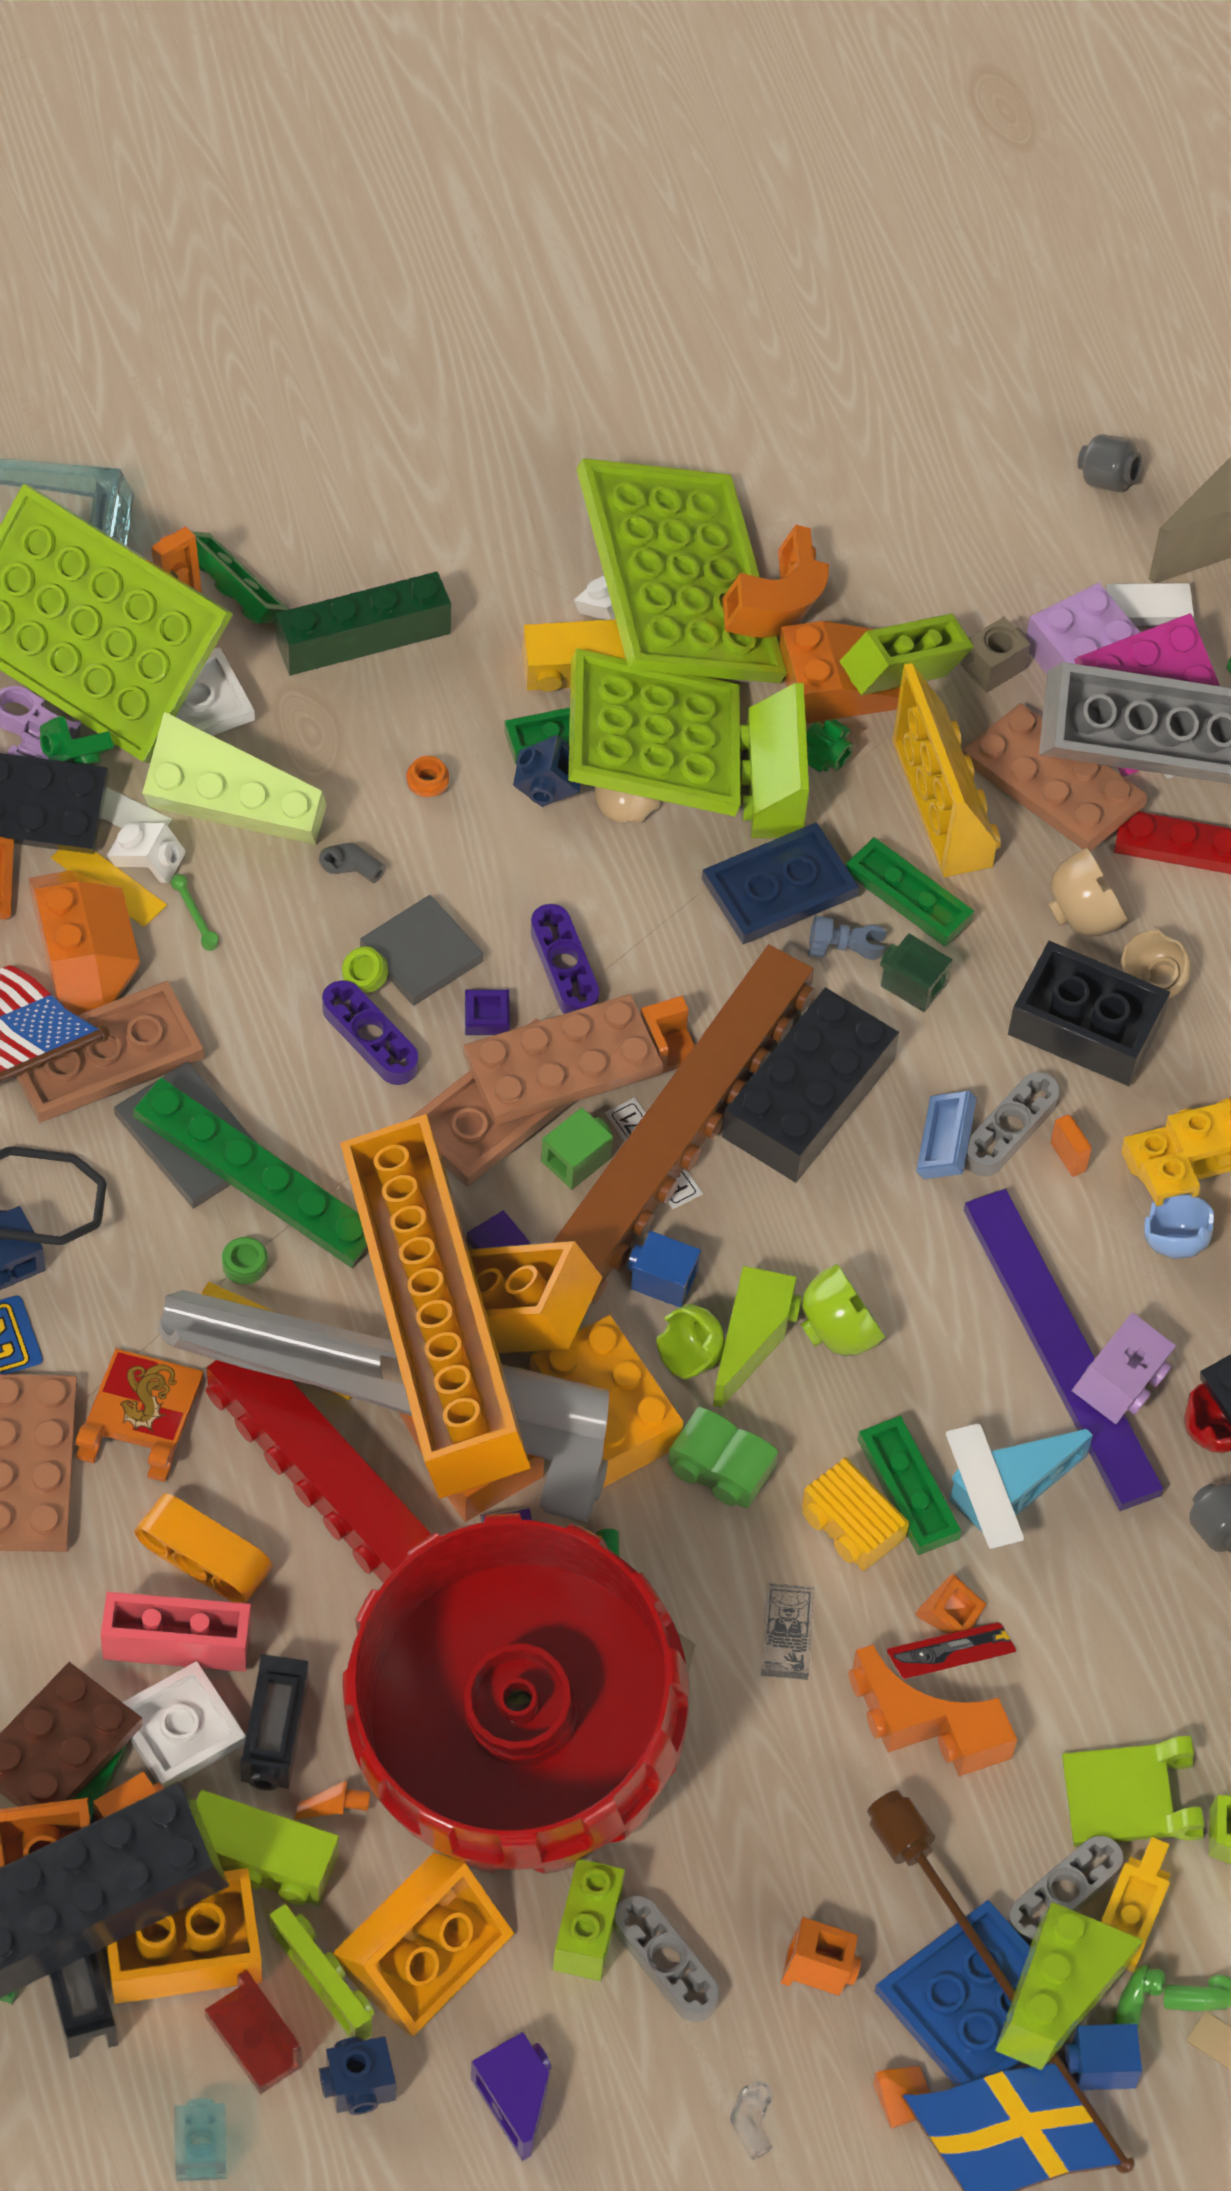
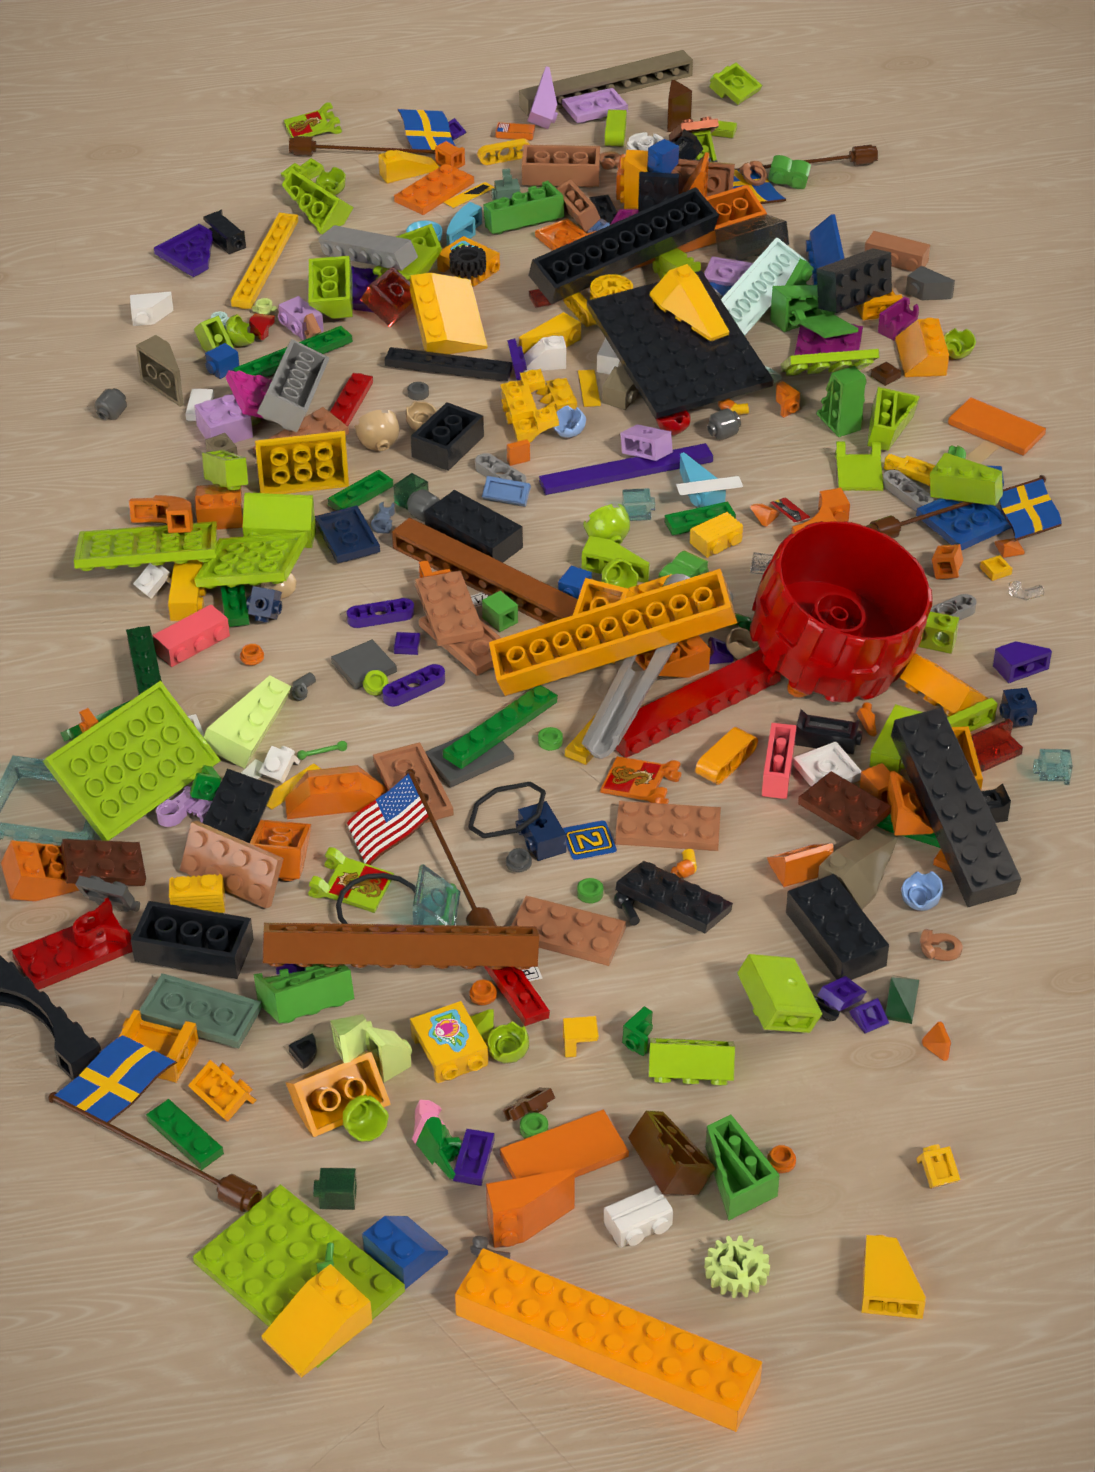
camera: 80 degrees left, 15 degrees down
(462, 677) = (191, 635): none -> coral brick
(830, 2064) = (996, 568): none -> yellow tile
(874, 990) = (419, 502): none -> dark grey head
(932, 1366) = (638, 503): none -> clear light blue brick

